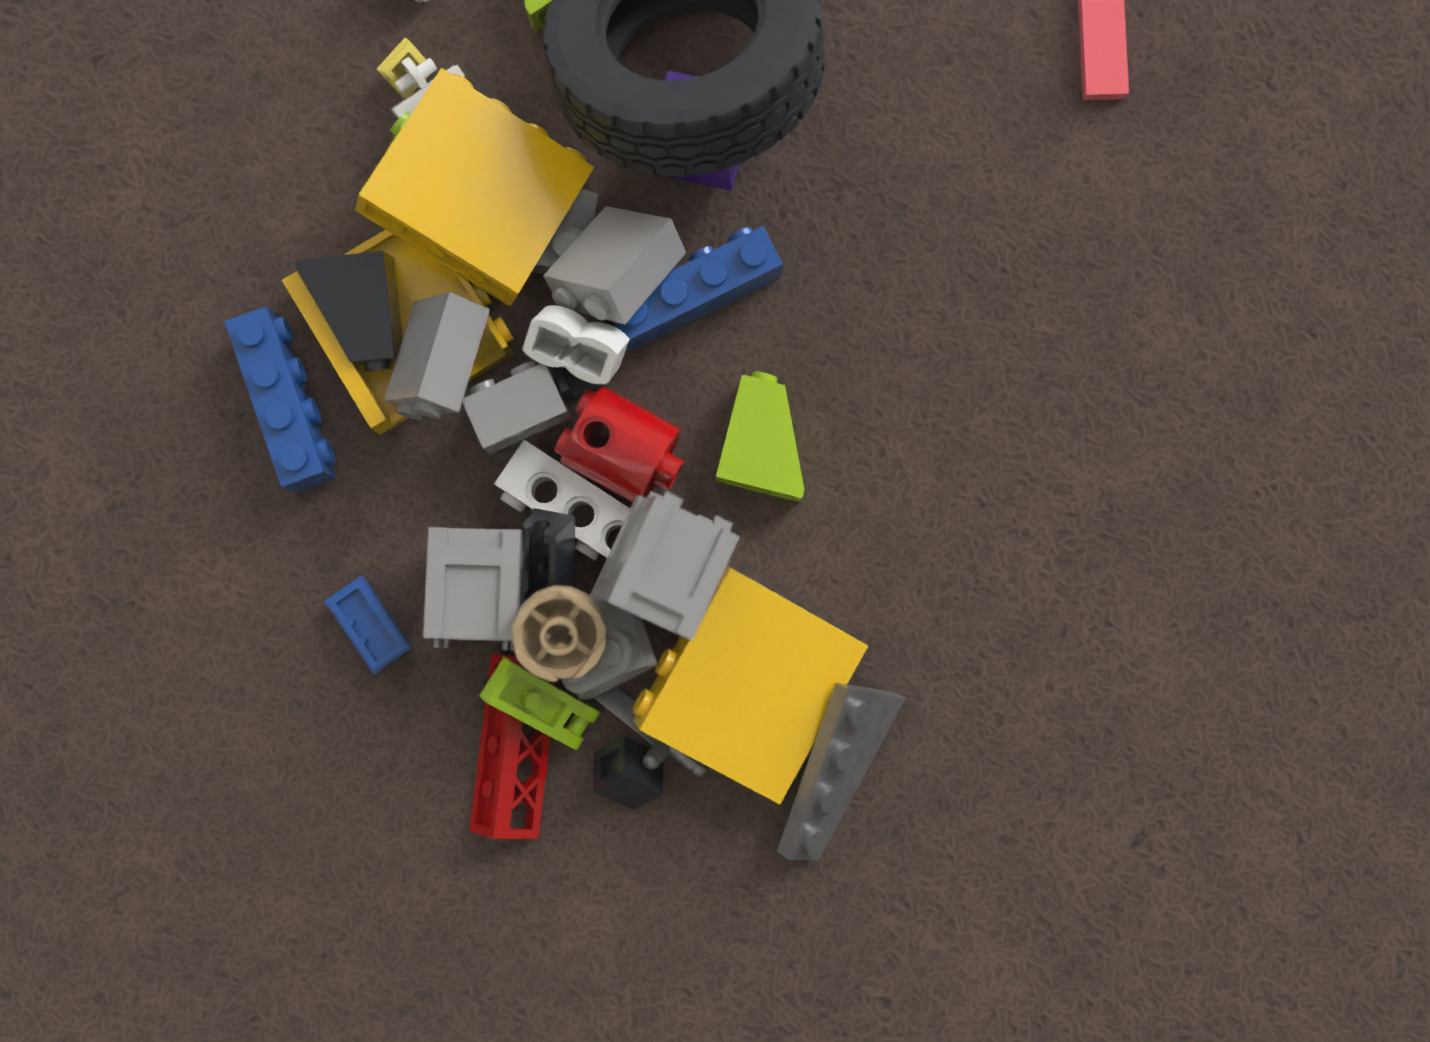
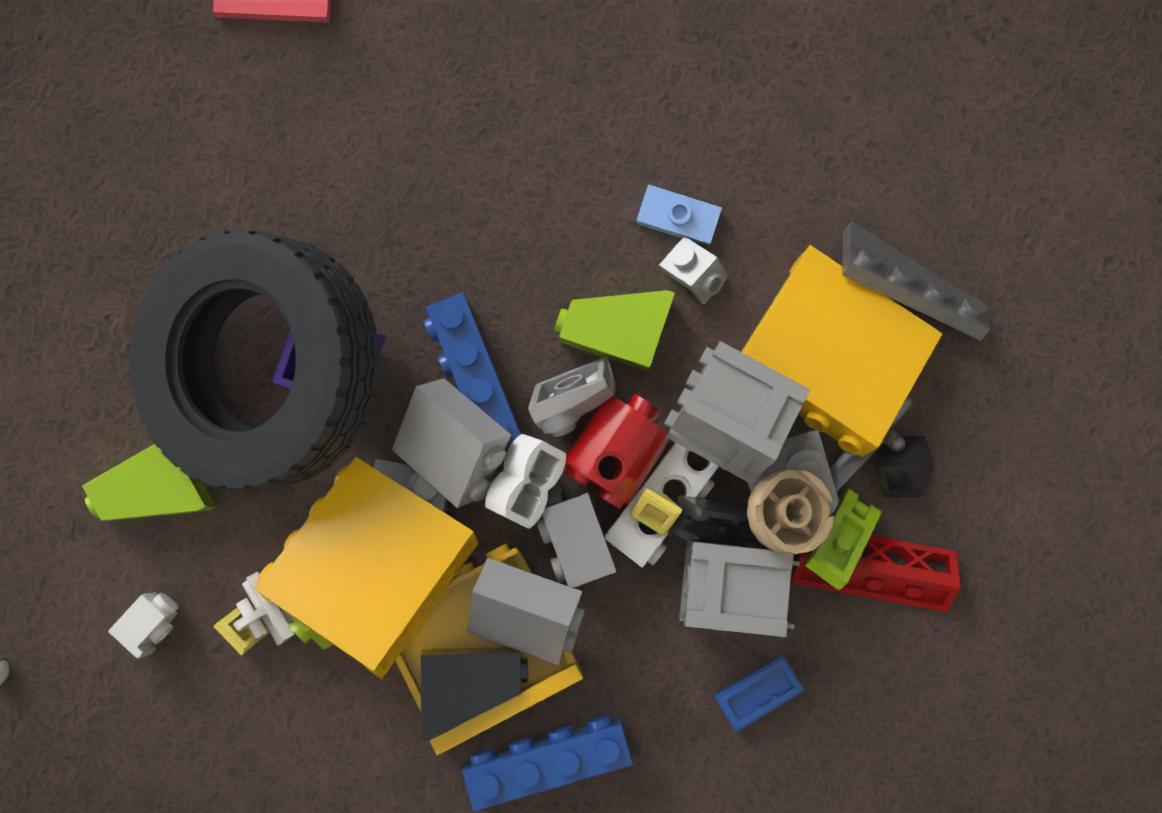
camera: 85 degrees left, 0 degrees up
(555, 492) = (656, 511): none -> light yellow slope
(677, 391) = (566, 397): none -> light grey slope
(833, 524) = (695, 269): none -> light grey bracket
(895, 502) = (678, 215): none -> light blue plate

